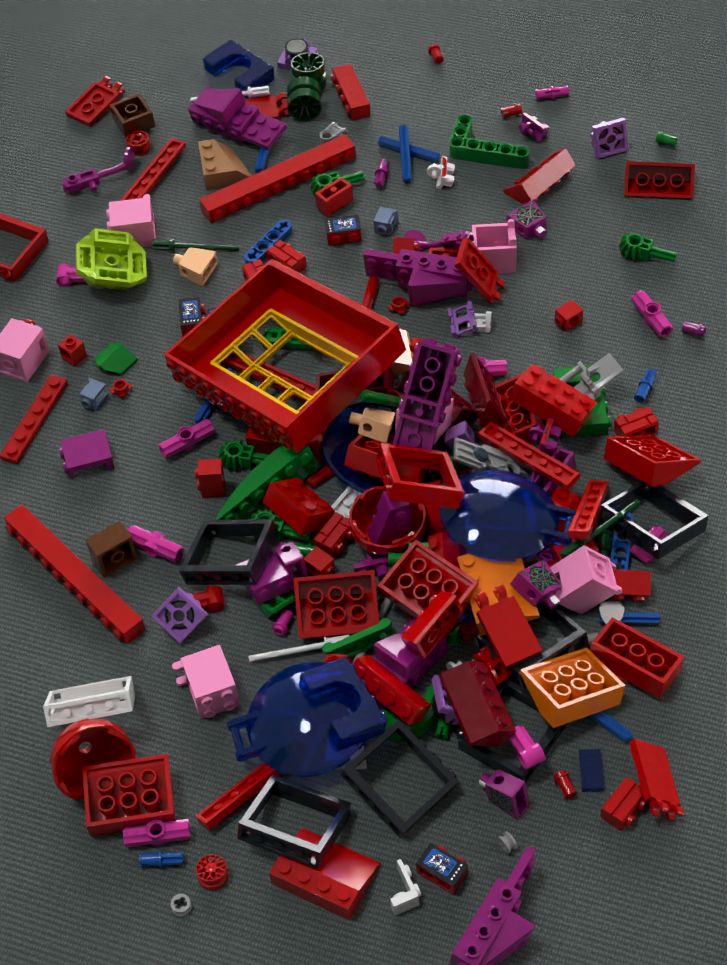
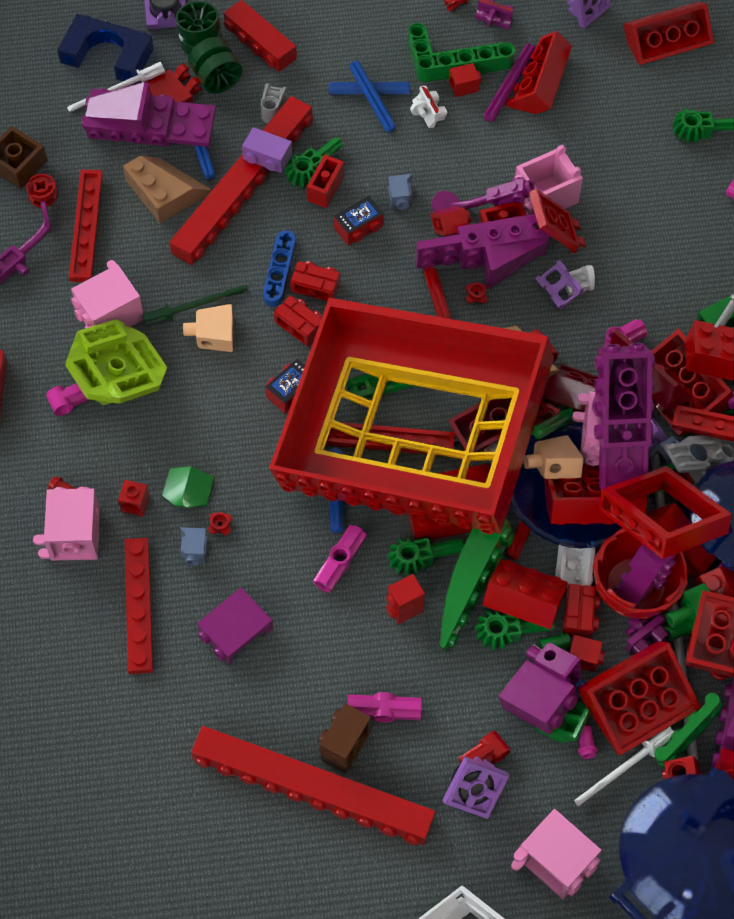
camera: 30 degrees left, 10 degrees up
(190, 313) = (249, 398): brick -> none
(229, 574) = (498, 717): black window -> none
(302, 161) = (267, 150): none -> medium lavender brick
(381, 173) = (357, 130): magenta axle -> none
(481, 164) = (464, 80): none -> red brick
(511, 178) = (509, 83): none -> magenta axle
(529, 221) = (558, 131): magenta torso -> none
(568, 315) = (671, 237): red brick -> none

